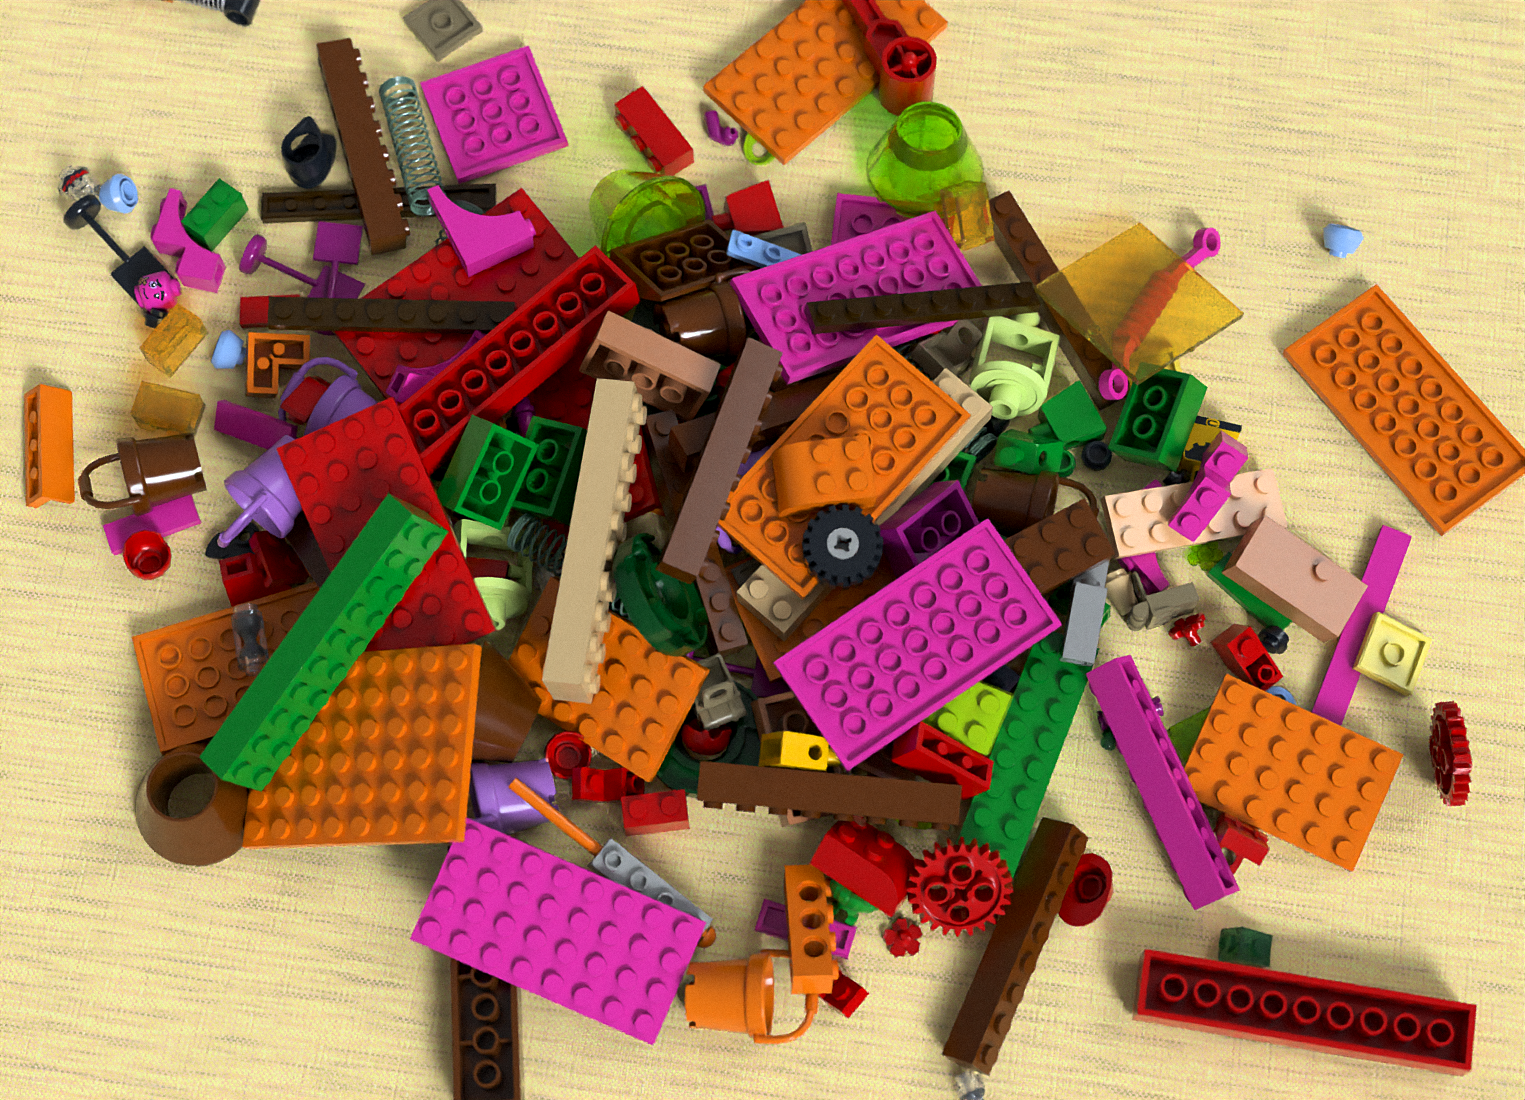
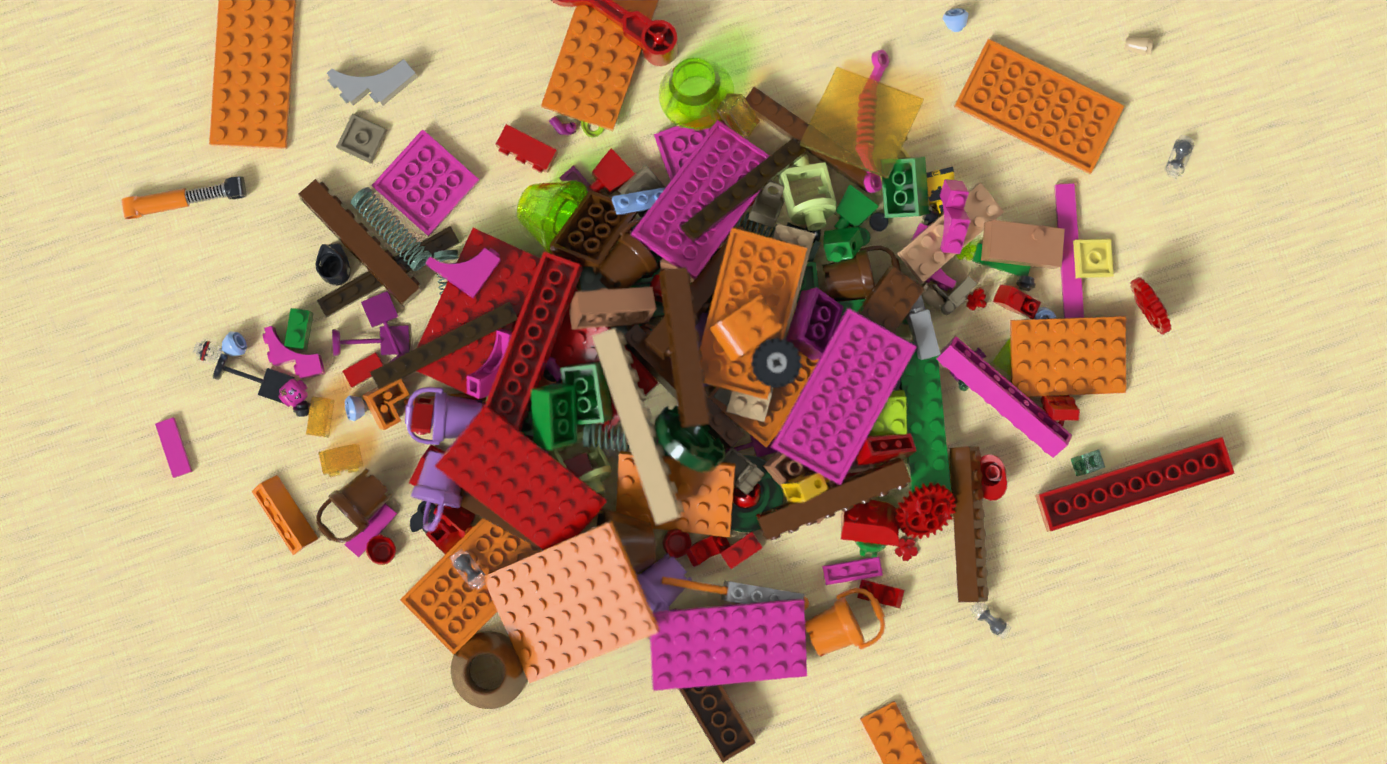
camera: 30 degrees left, 15 degrees up
(251, 425) = (398, 446): dark pink tile -> none
(323, 644) = (523, 559): green brick -> none
(809, 973) = (868, 599): orange brick -> none

